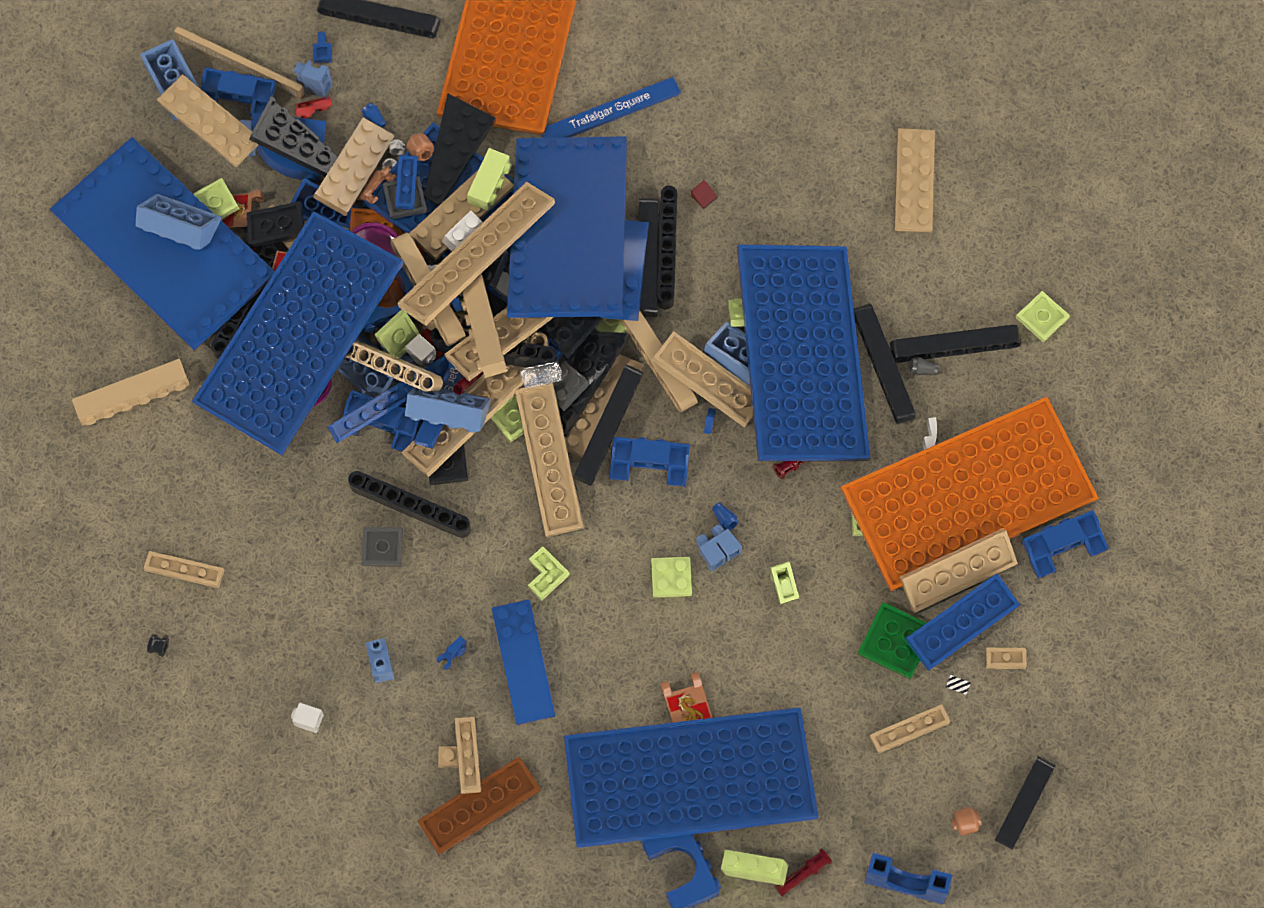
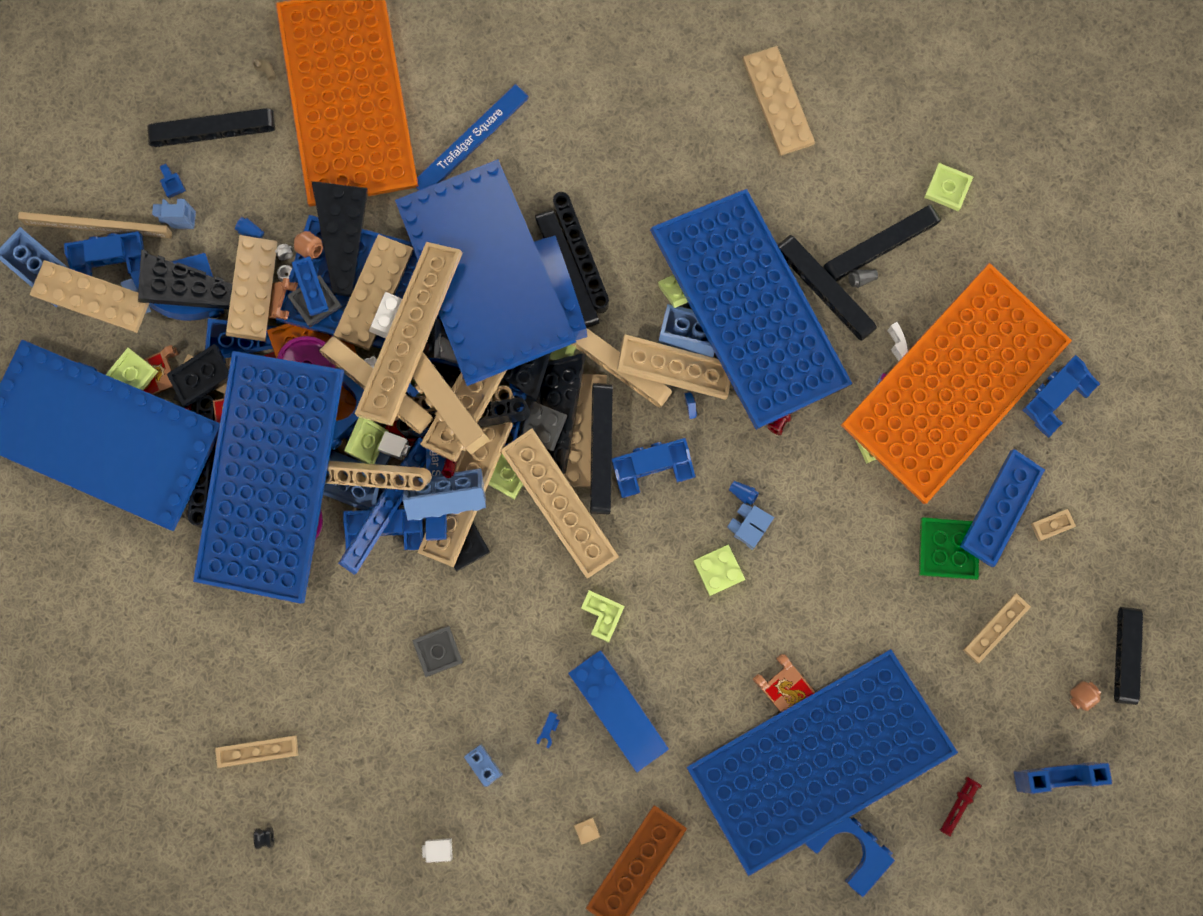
camera: 25 degrees left, 10 degrees up
(130, 392) = (129, 596): tan brick -> none
(177, 221) = (102, 410): medium blue slope -> none
(305, 108) = (180, 246): red plate -> none
(404, 497) = (436, 596): black beam -> none
(467, 755) = (606, 825): tan plate -> none
(489, 179) = (388, 252): yellowish green brick -> none
(541, 374) = (520, 427): clear plate -> none
(703, 194) = (592, 188): dark red slope -> none
(754, 867) = (917, 823): yellowish green brick -> none
(784, 582) = (826, 536): yellowish green slope -> none
(958, 570) = (978, 460): tan plate -> none
(958, 684) = (1019, 566): sticker -> none

